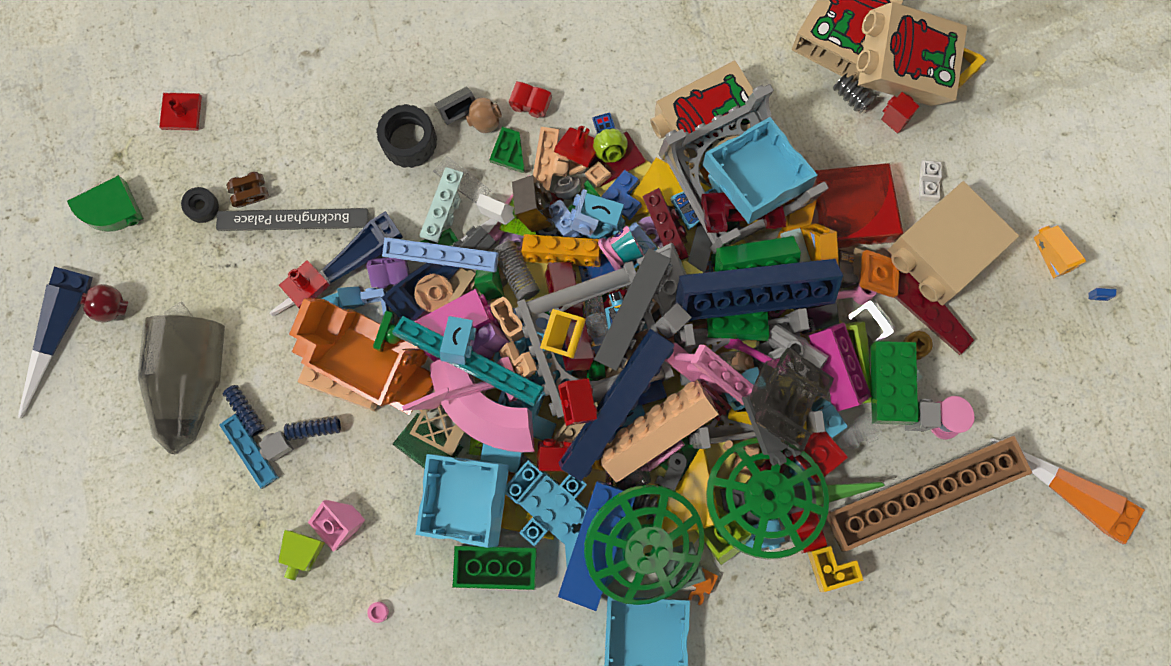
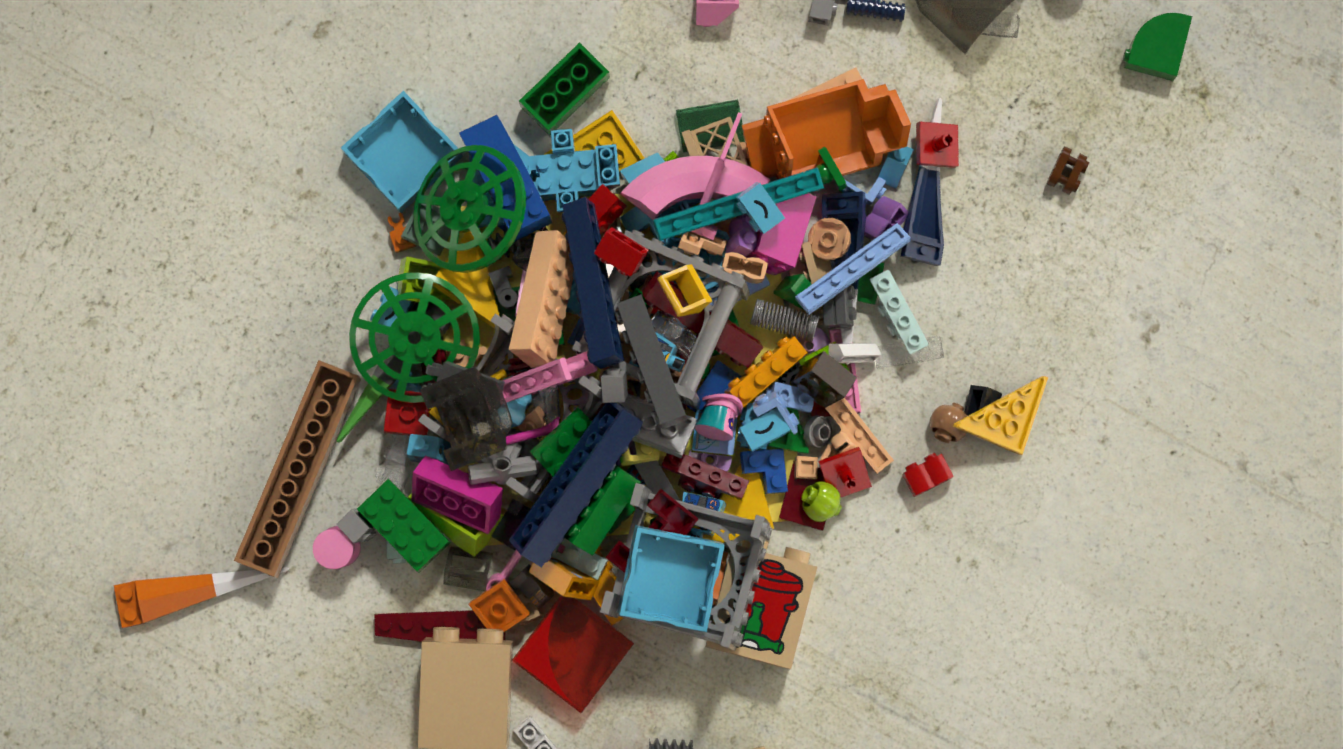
camera: 130 degrees right, 5 degrees up
(180, 111) = (1196, 177): red tile -> none
(197, 194) = (1085, 132): black tyre -> none
(291, 219) = (1006, 185): dark grey tile -> none
(312, 428) = (809, 48): dark blue piece -> none
(400, 116) = (1008, 322): black tyre -> none
(448, 82) = (1008, 419): none -> yellow tile
(462, 500) = (638, 109): medium azure tile -> none
(508, 150) = (898, 415): green wing -> none
(603, 122) = (847, 517): tile -> none
(807, 529) = (362, 347): red brick -> none
(829, 574) = (312, 334): yellow brick -> none
(923, 343) = (415, 585): pearl gold wheel -> none

